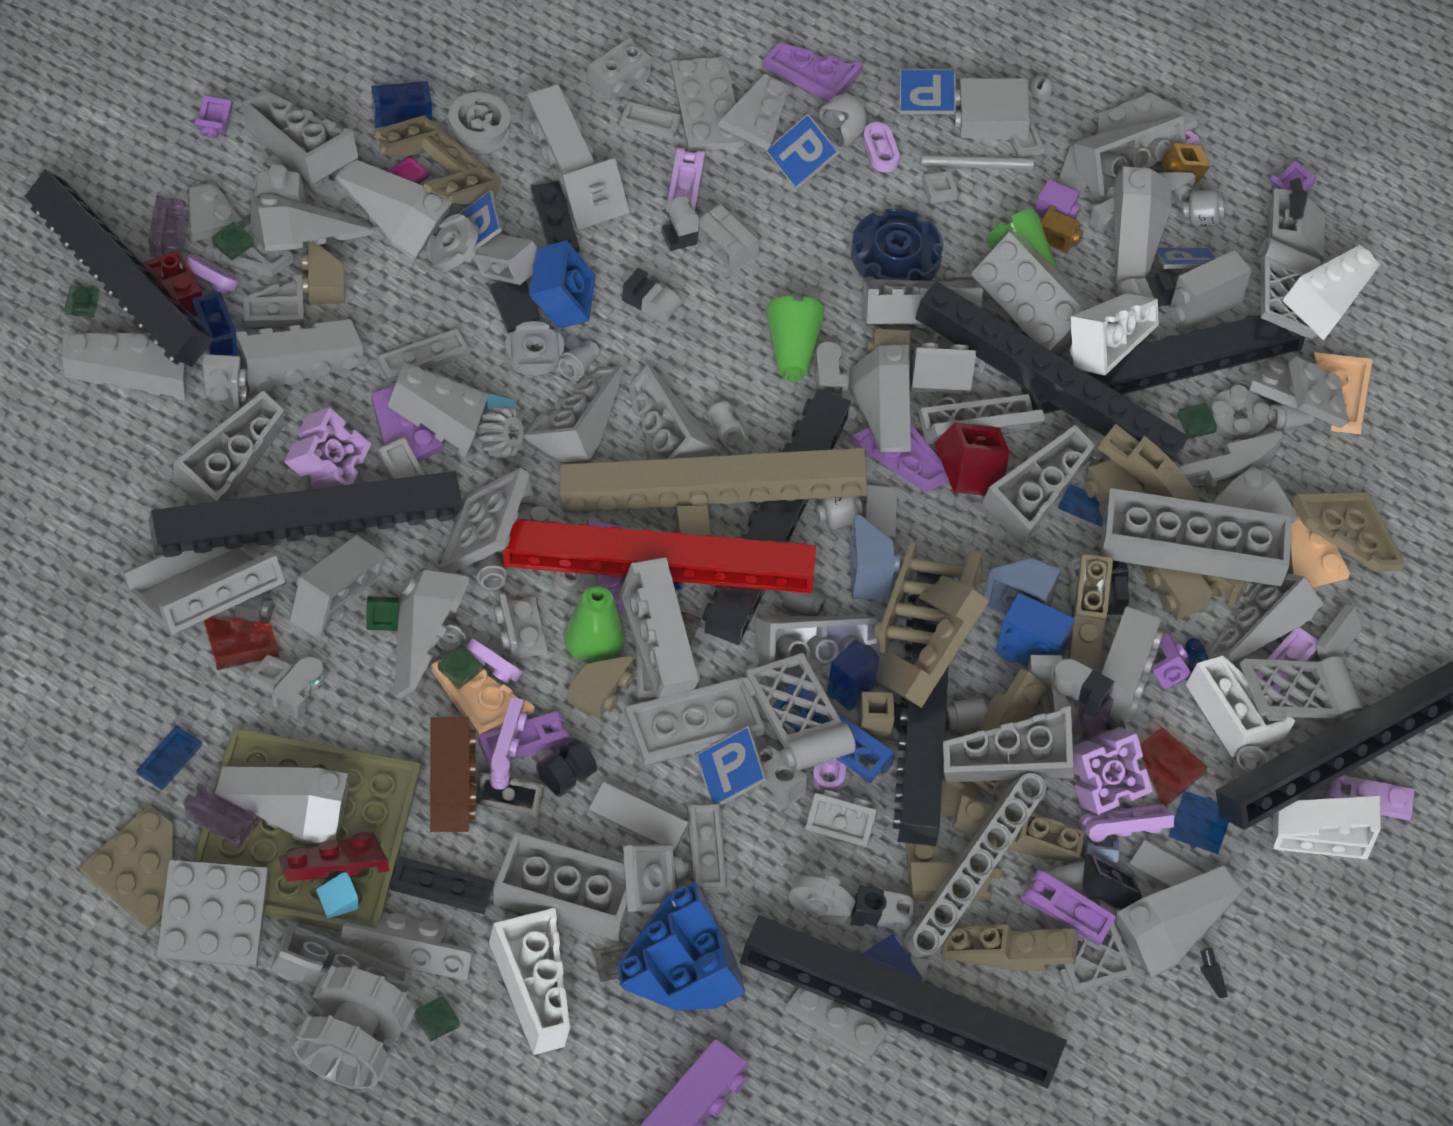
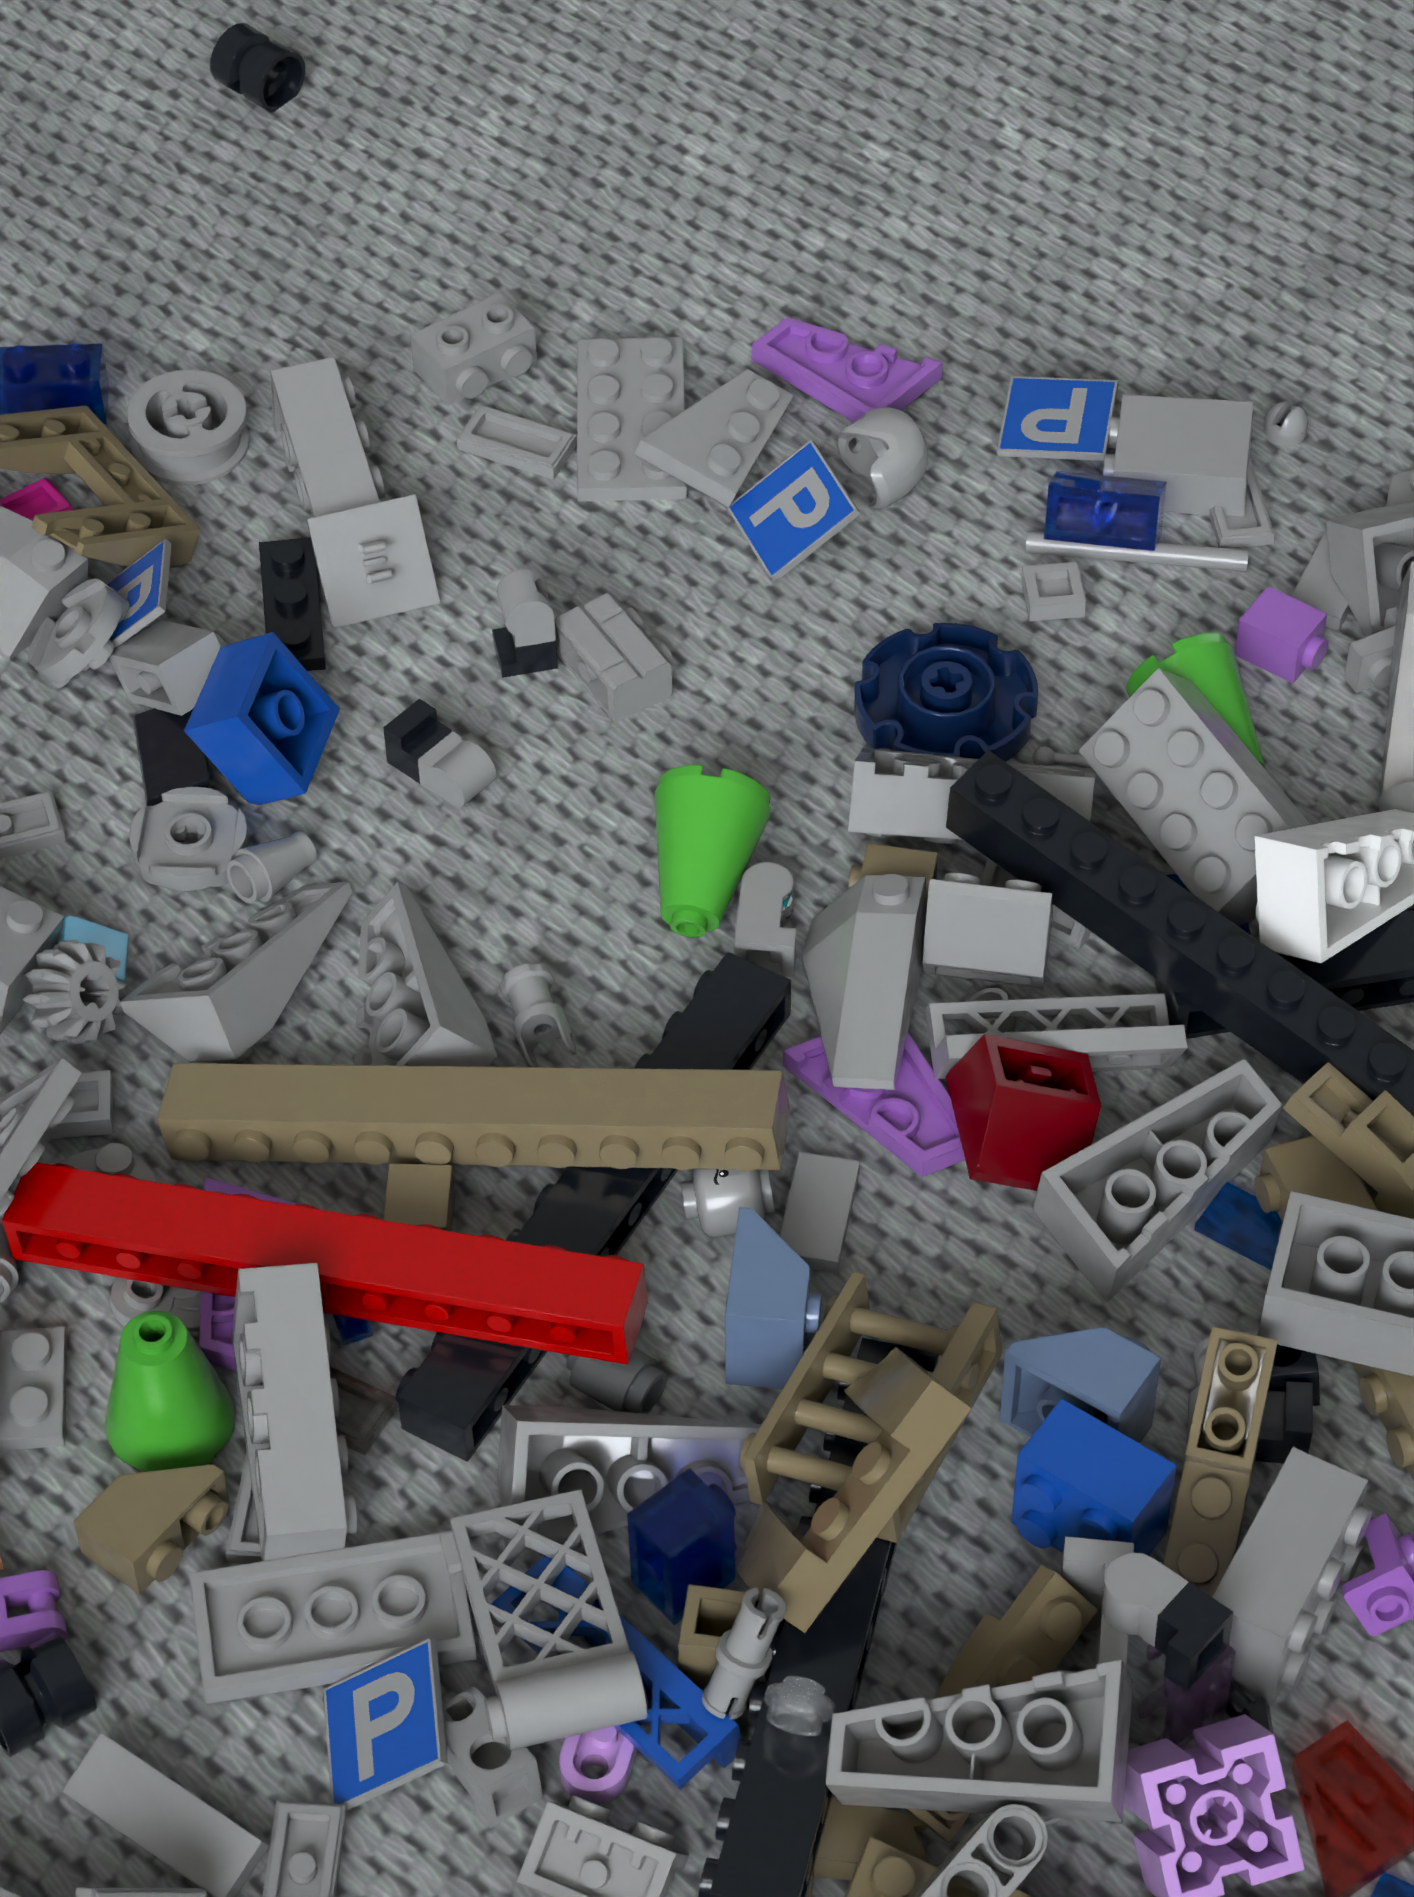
camera: 15 degrees right, 5 degrees down
(686, 175) = (563, 543): lavender plate -> none
(881, 149) = (955, 522): lavender plate -> none
(896, 719) = (744, 1653): none -> light grey pin
(925, 739) = (798, 1706): none -> clear plate
(961, 142) = (1105, 510): none -> clear blue brick
(966, 714) = (916, 1654): light grey brick -> none
(1061, 230) = (1280, 684): pearl gold brick -> none

